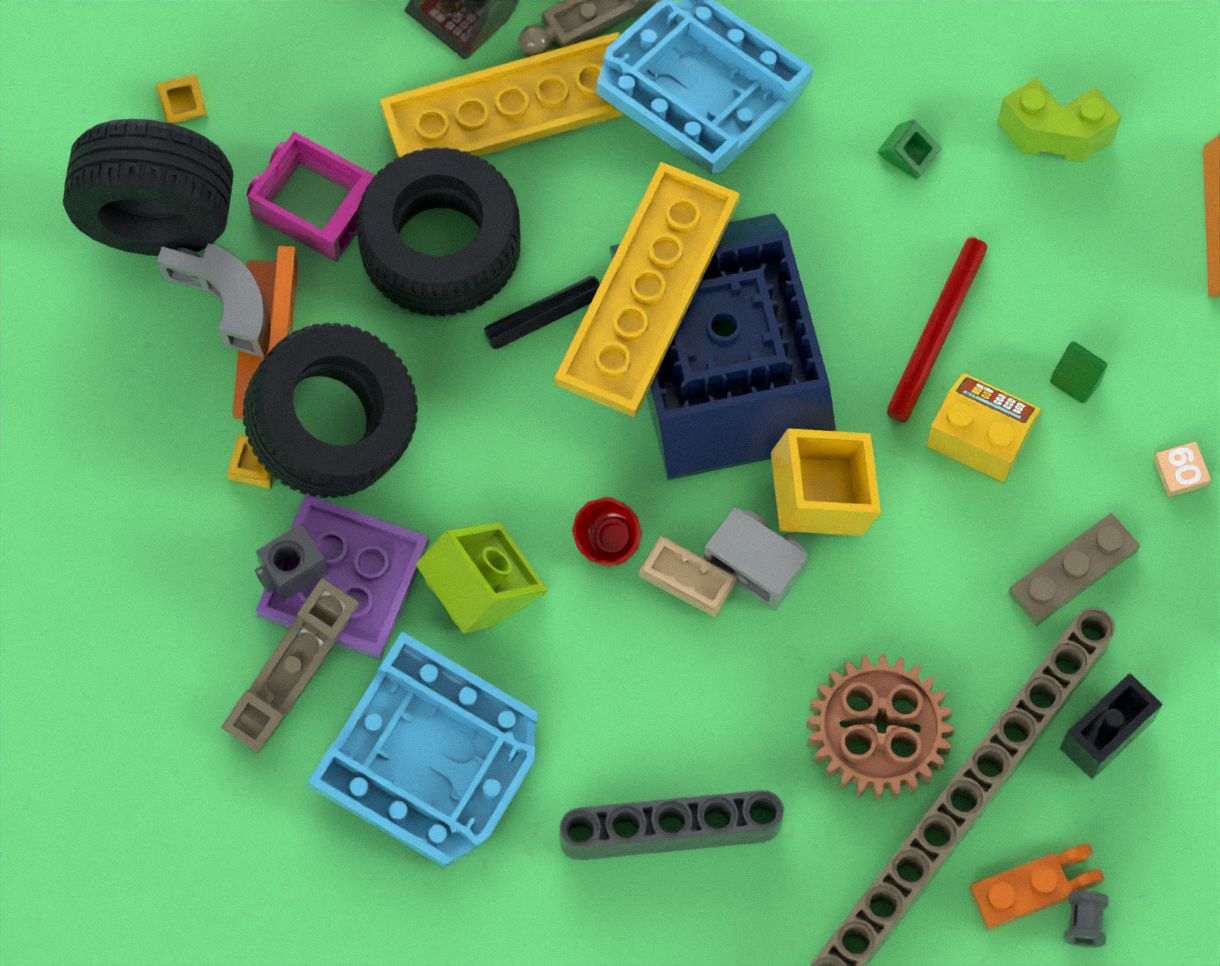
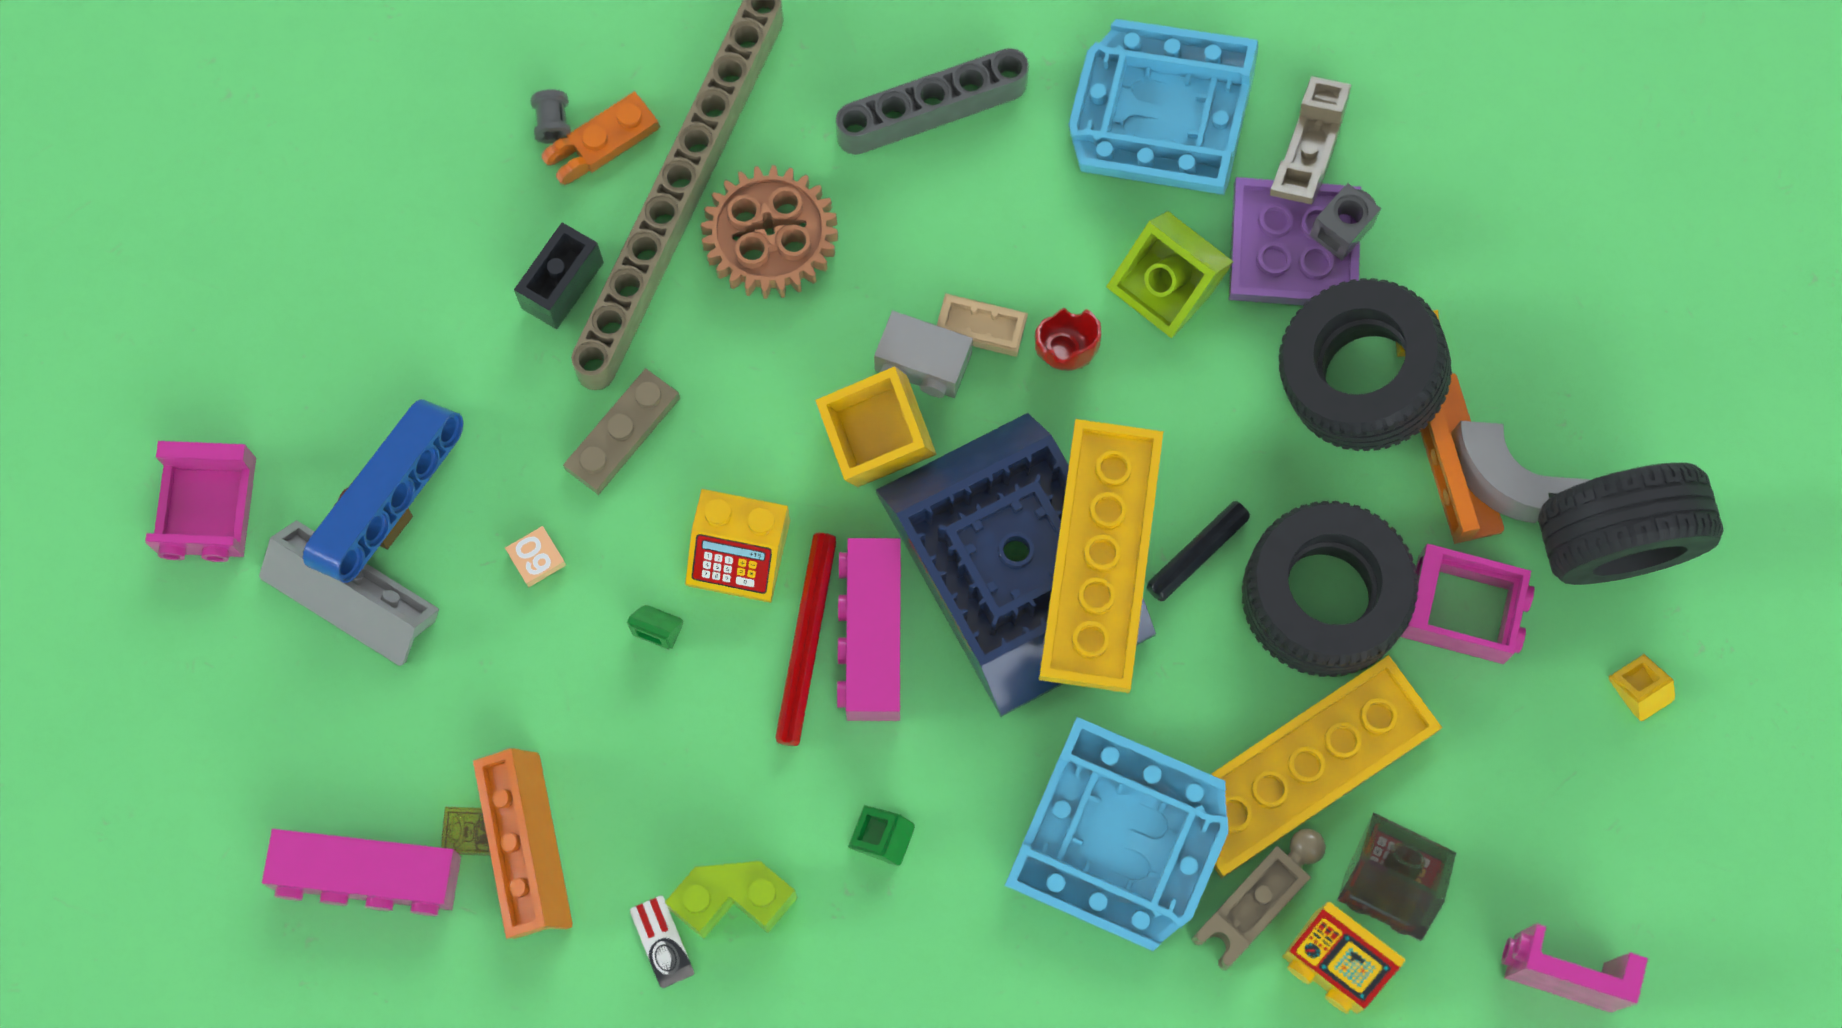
camera: 165 degrees right, 5 degrees up
(873, 314) = (872, 629): none -> dark pink brick
(1132, 129) = (661, 942): none -> sticker

